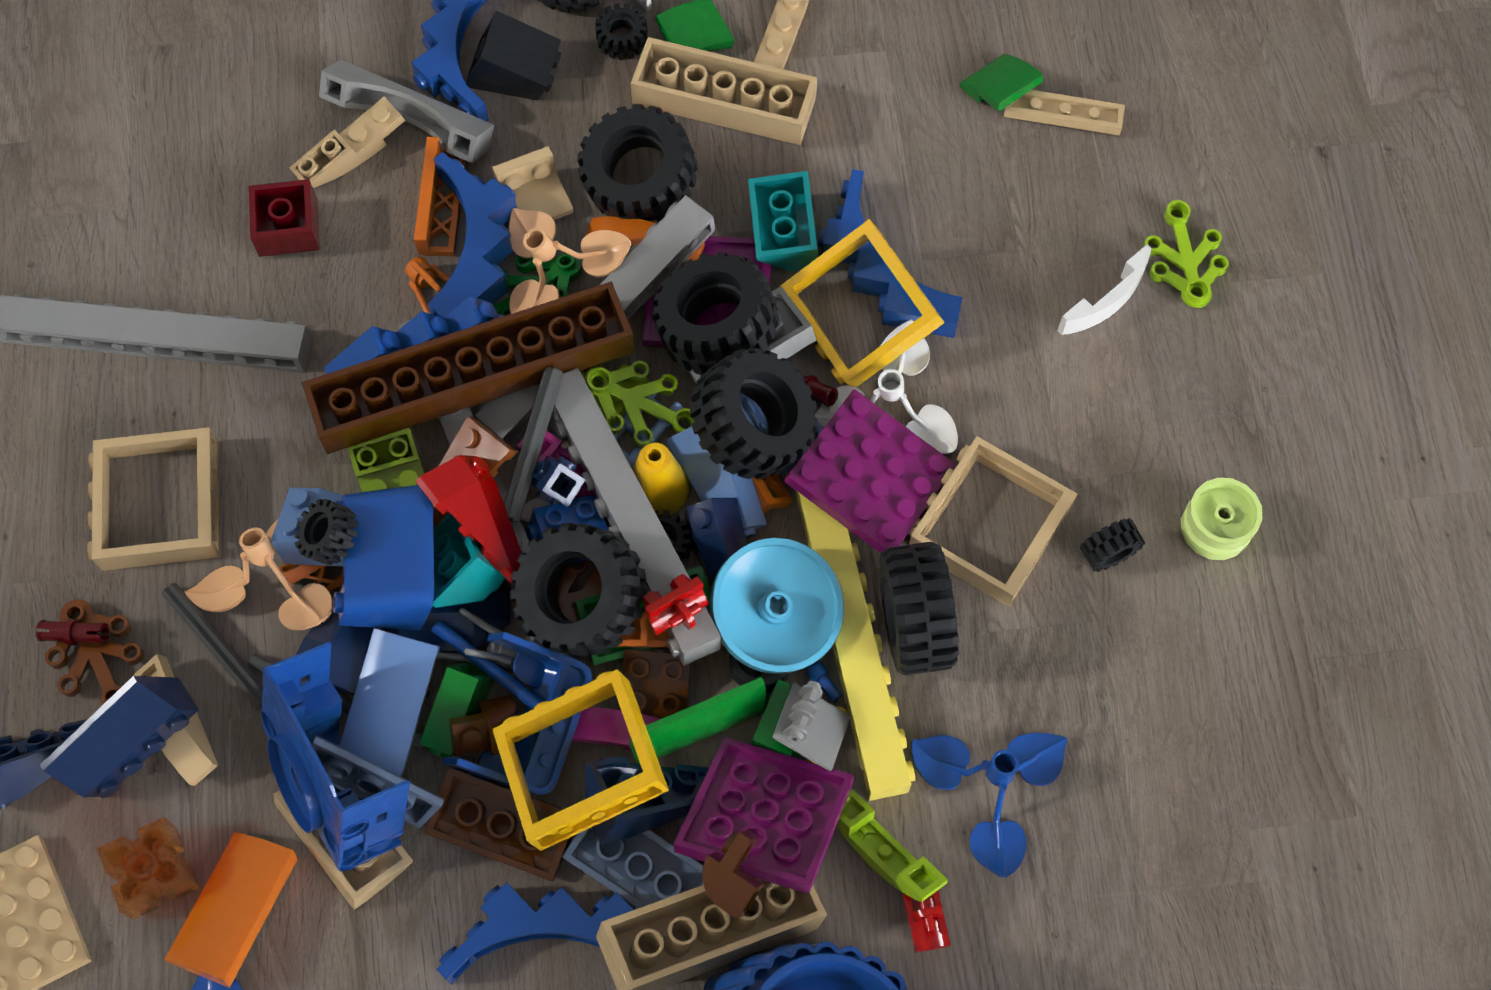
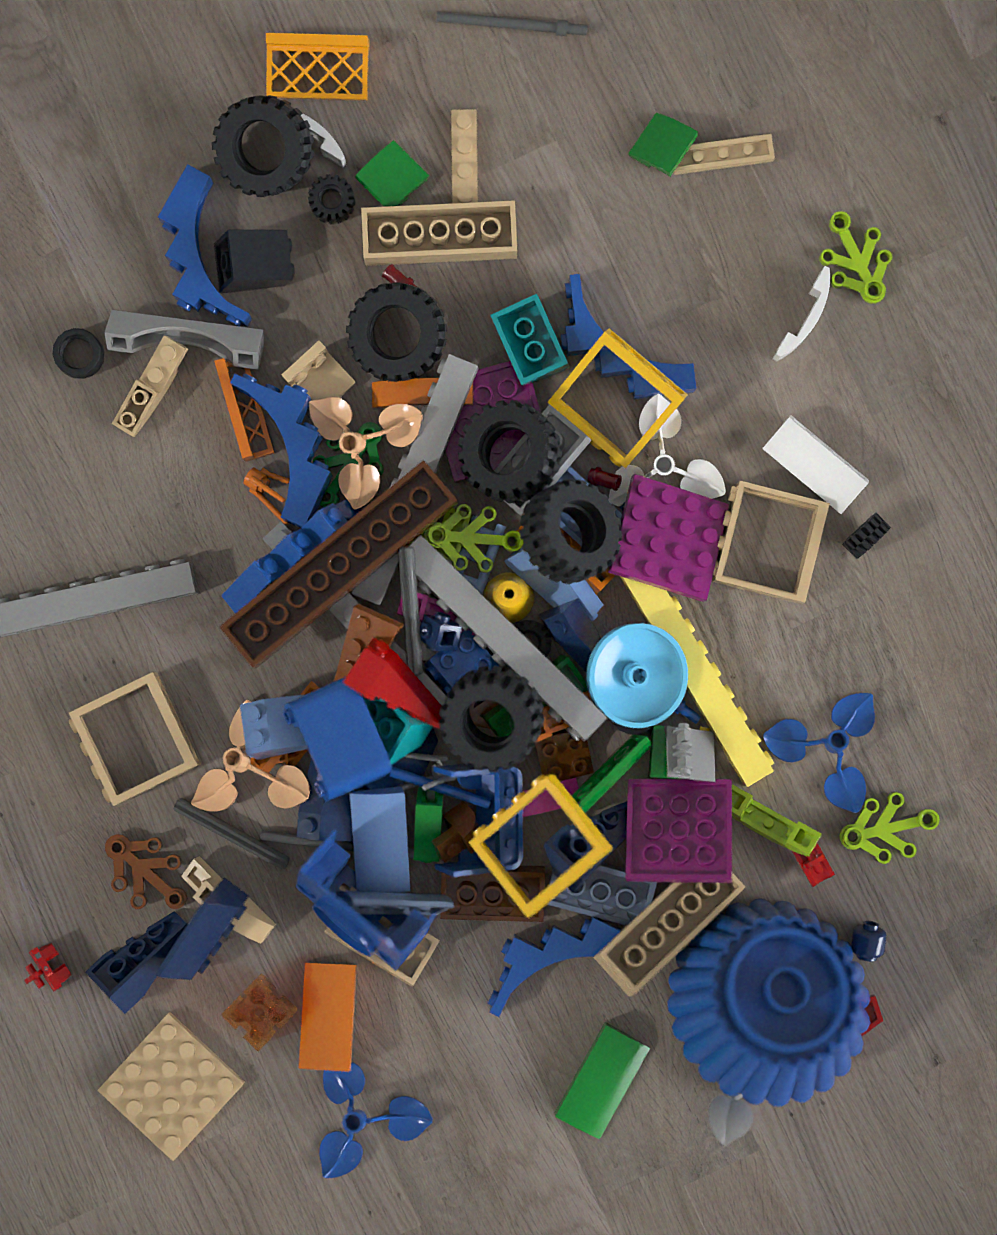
camera: 20 degrees left, 20 degrees up
(72, 632) = (124, 863): dark red pin -> none
(280, 77) = (61, 343): none -> black tyre
(283, 218) = (129, 472): dark red brick -> none
(323, 545) = (281, 747): black tyre -> none
(387, 461) = (303, 658): lime brick -> none
(677, 606) = (572, 710): red hips -> none
(725, 879) = (674, 895): reddish brown brick -> none
(919, 608) = (742, 643): black tyre -> none
(1033, 914) = (884, 829): none -> lime plant
(1075, 451) = (816, 464): none -> white brick
(1221, 518) = (956, 481): yellowish green wheel -> none

